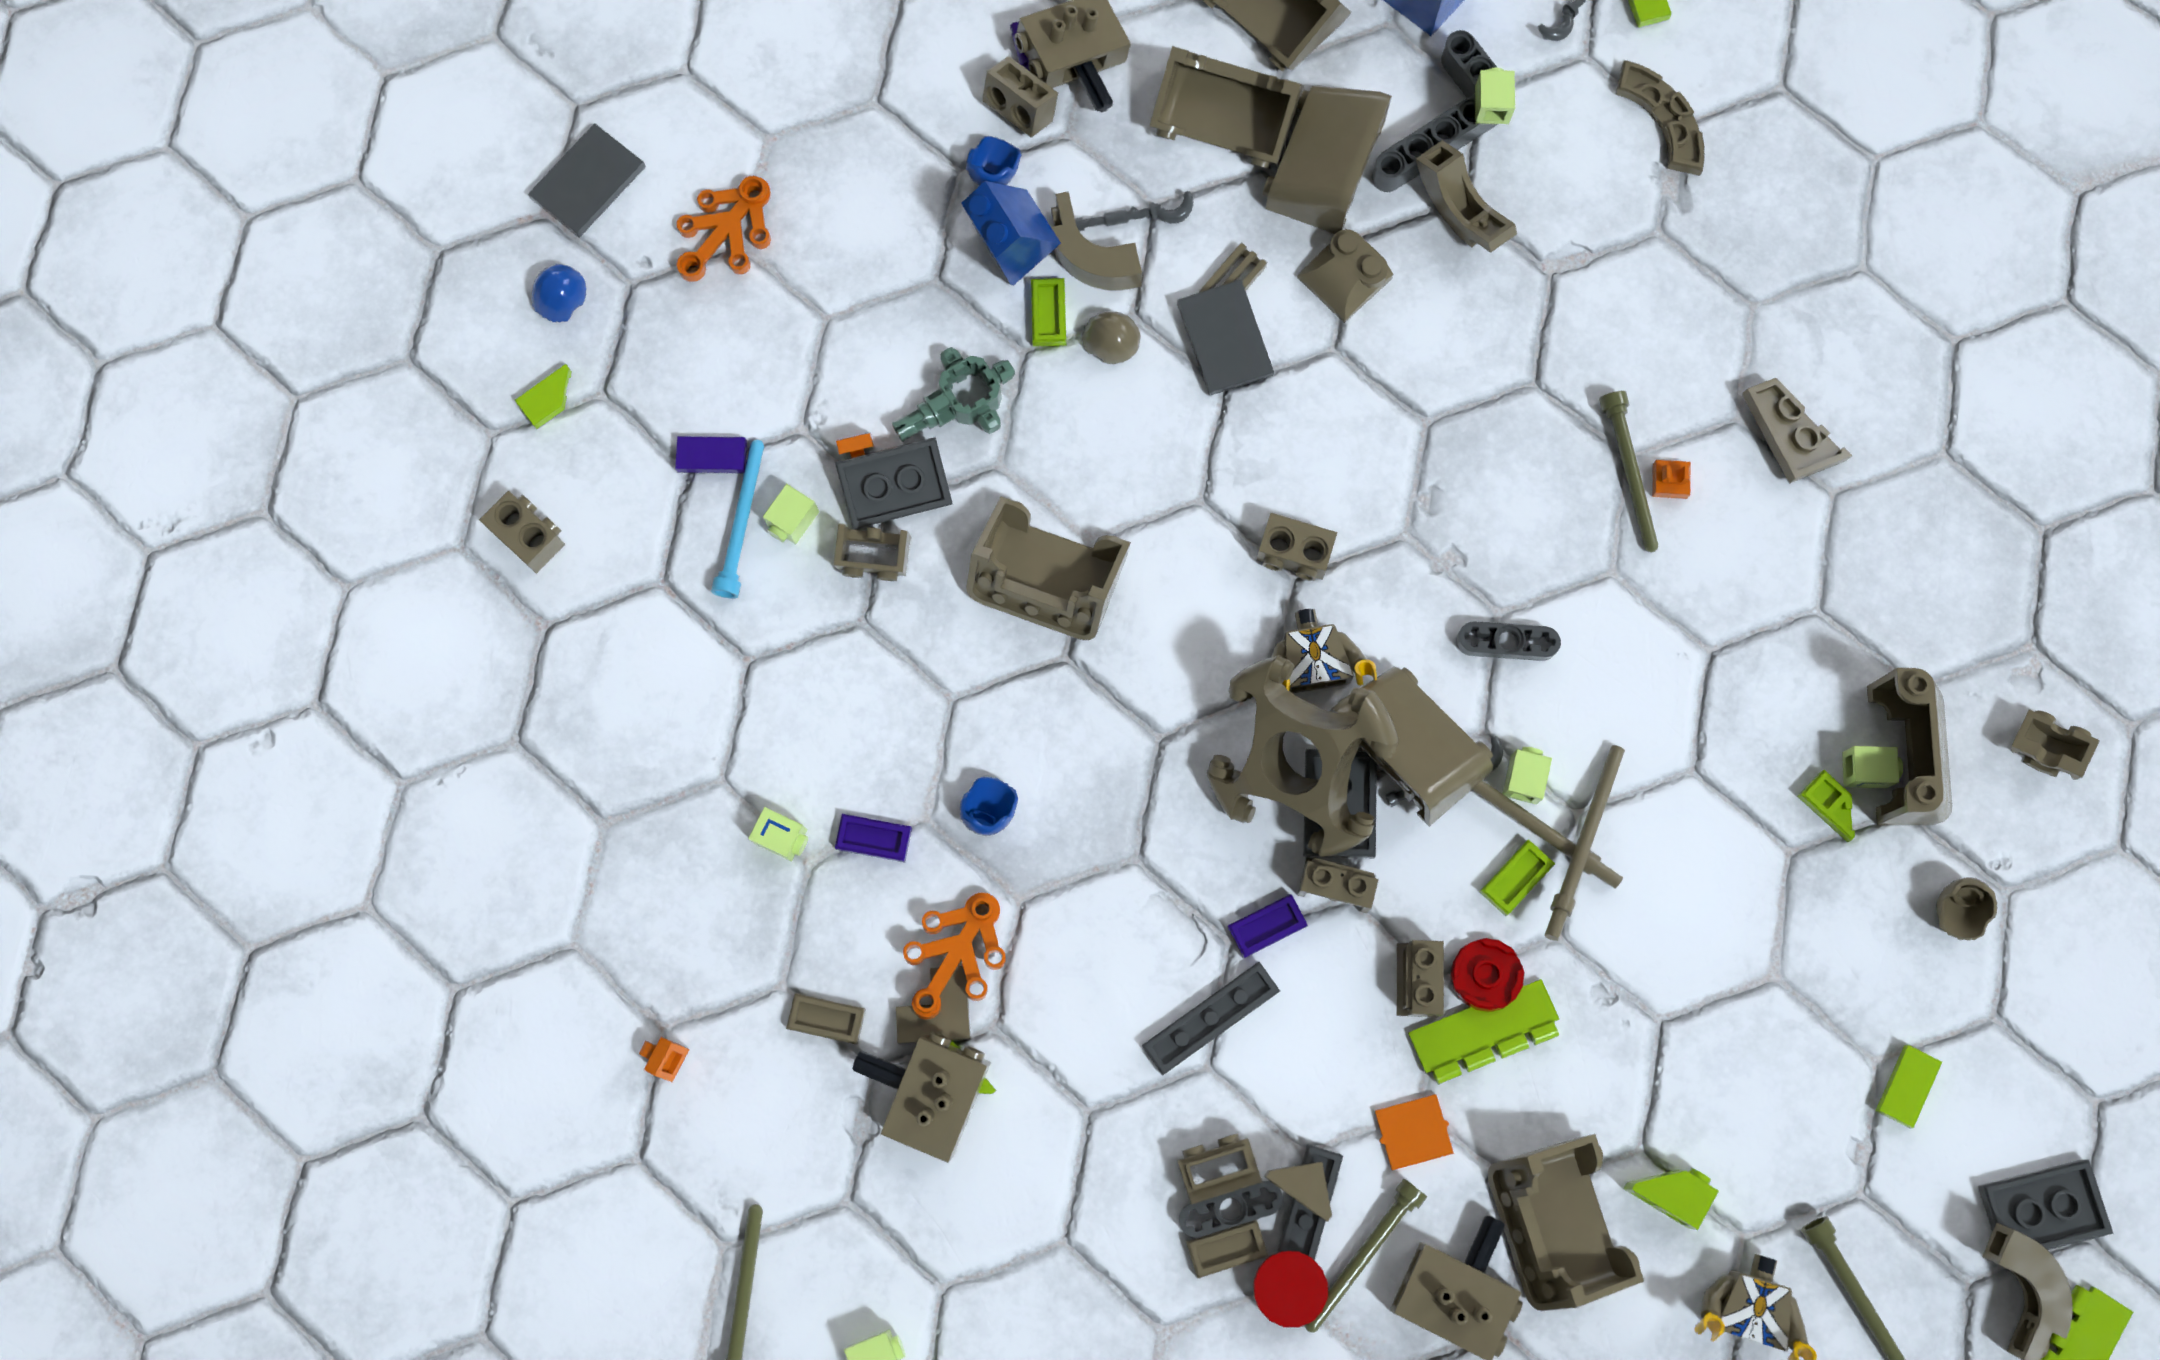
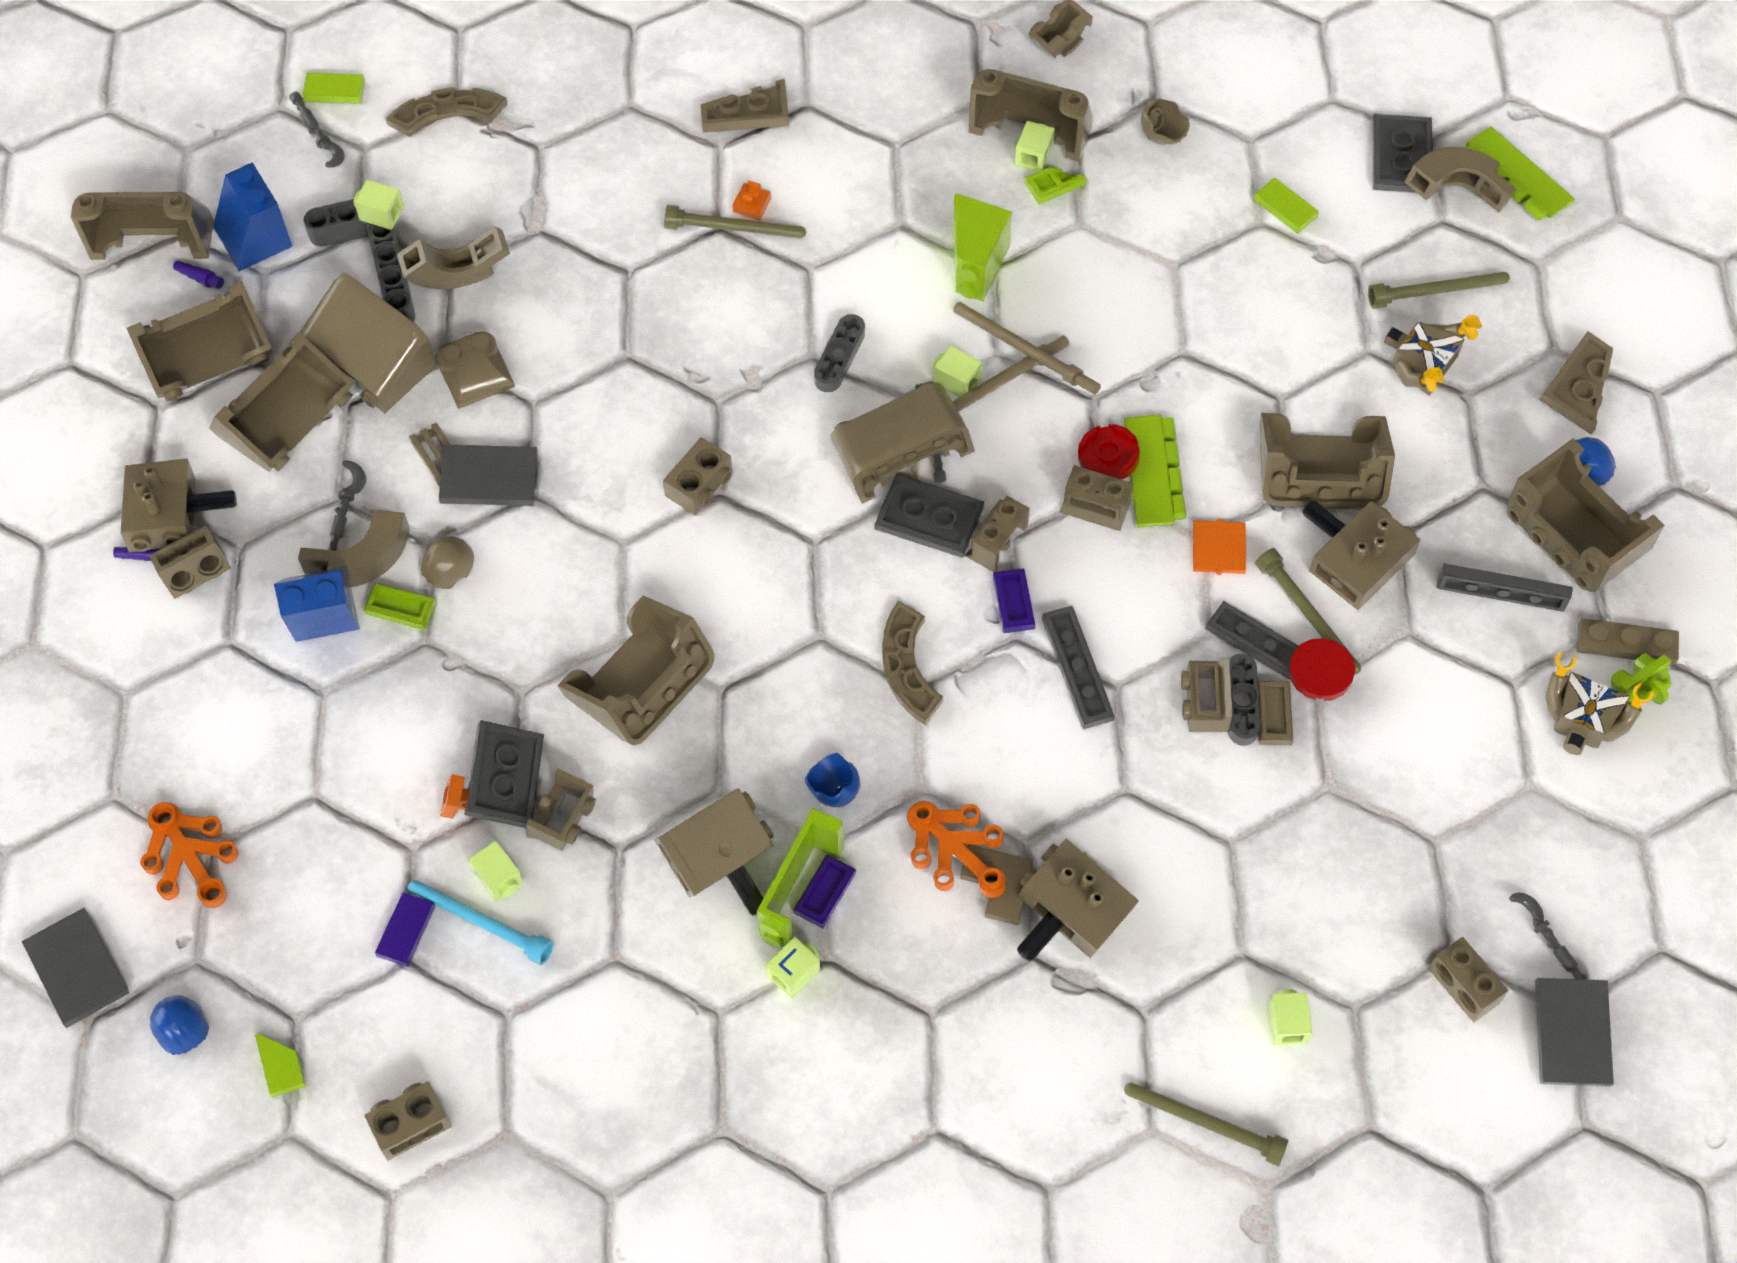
camera: 75 degrees left, 15 degrees down
(664, 1058) = (966, 1128): orange tile -> none
(826, 1019) = (975, 979): dark tan tile -> none
(873, 715) = (717, 846): none -> dark tan piece
(922, 807) = (817, 832): none -> lime panel
(944, 407) = (449, 712): sand green piece -> none
(993, 161) = (240, 604): blue hair -> none
(1152, 830) = (900, 664): none -> dark tan tile
(1272, 777) = (922, 512): dark tan piece -> none
(1306, 1185) = (1243, 628): dark tan slope -> none
(1321, 656) = (801, 488): torso -> none
(1517, 877) = (1036, 409): lime tile -> none
(1677, 1194) = (1325, 377): lime slope -> none
(1697, 746) = (979, 244): none -> lime slope

